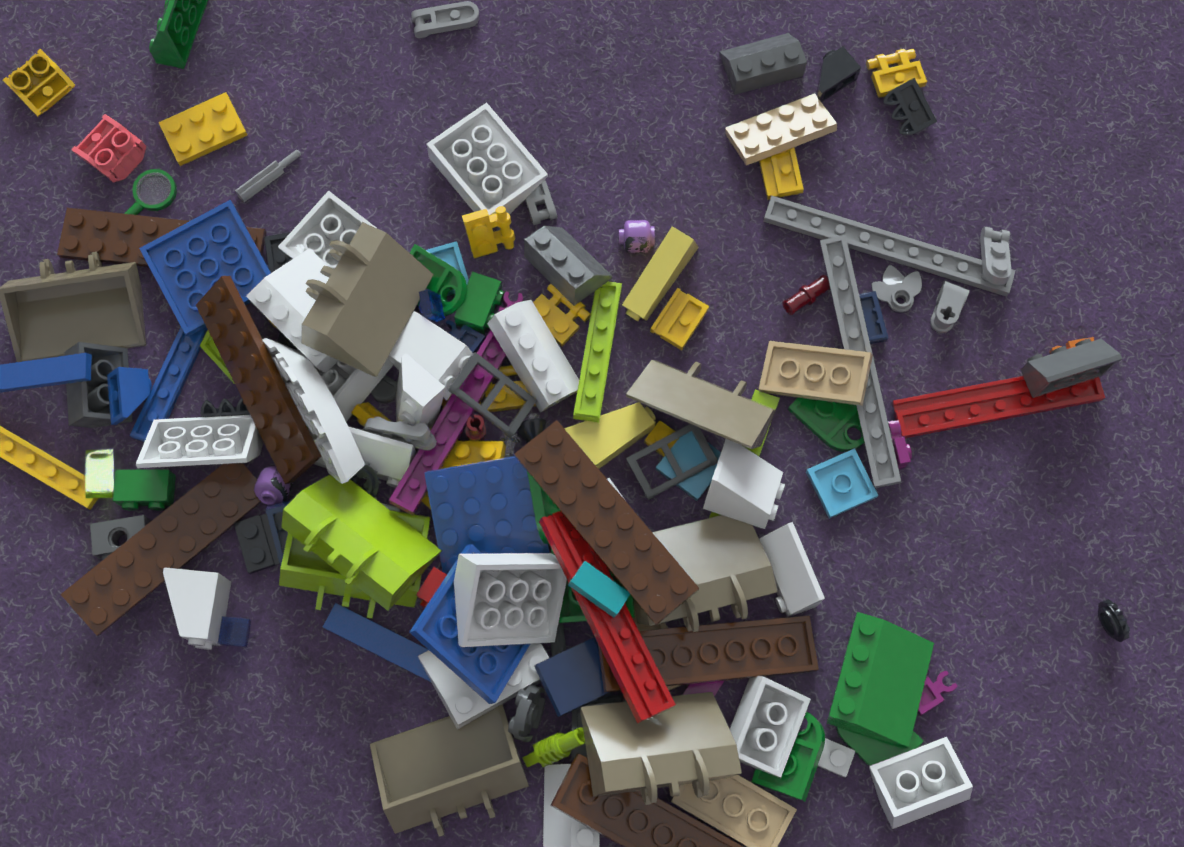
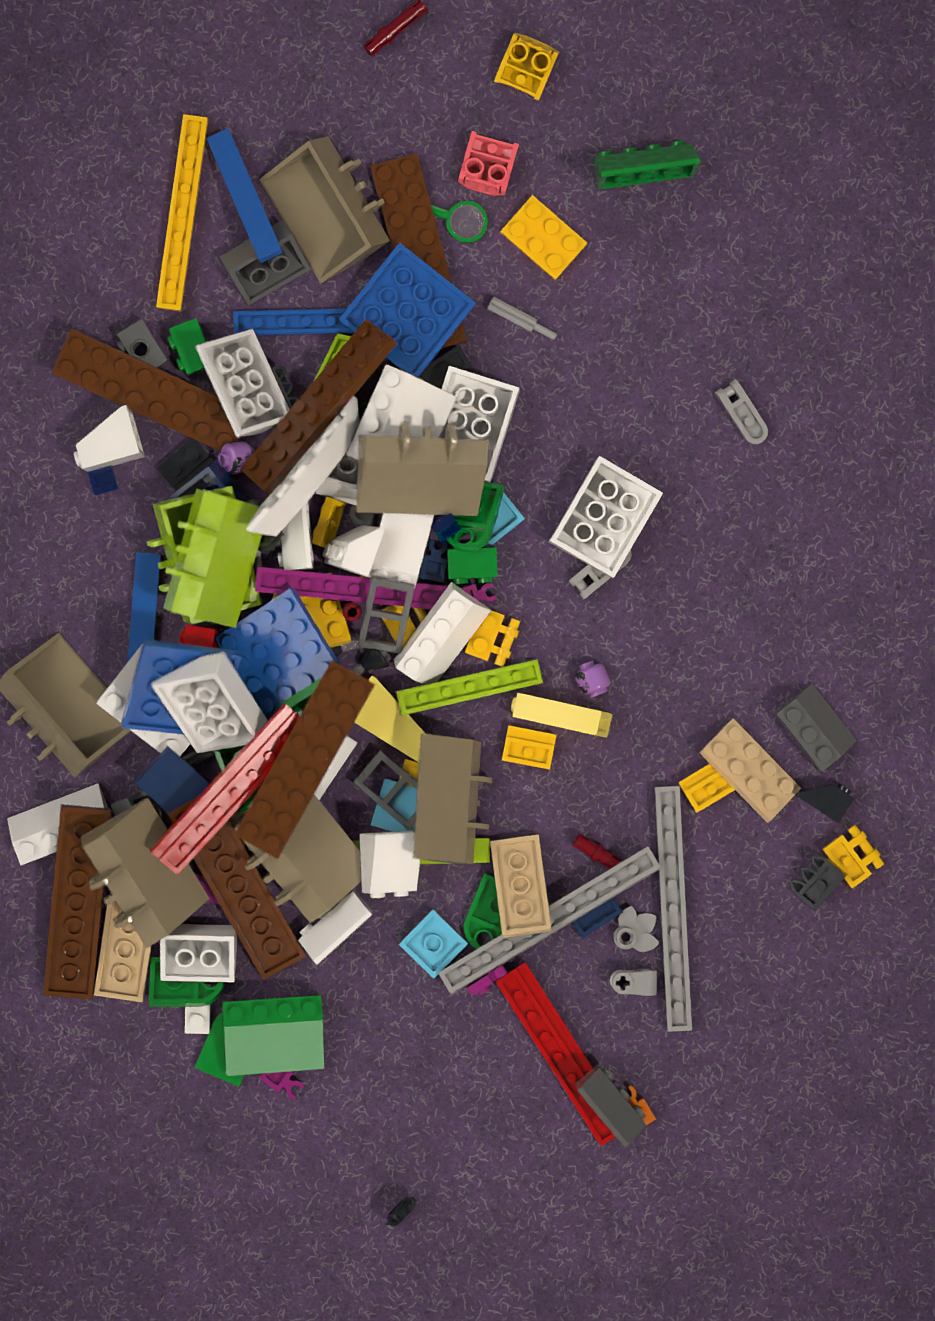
camera: 65 degrees right, 15 degrees up
(99, 473) = (189, 303): clear neon green tile -> none
(127, 391) = (266, 294): blue slope -> none
(416, 435) = (319, 550): light grey plate -> none
(480, 231) = (537, 543): yellow plate -> none
(528, 712) = (132, 755): dark grey plate -> none
(555, 748) = (110, 787): lime hinge -> none
(565, 263) = (539, 627): dark grey slope -> none
(599, 589) = (245, 777): teal tile -> none
(920, 782) = (202, 1094): white slope -> none
(995, 255) = (698, 1008): light grey plate -> none

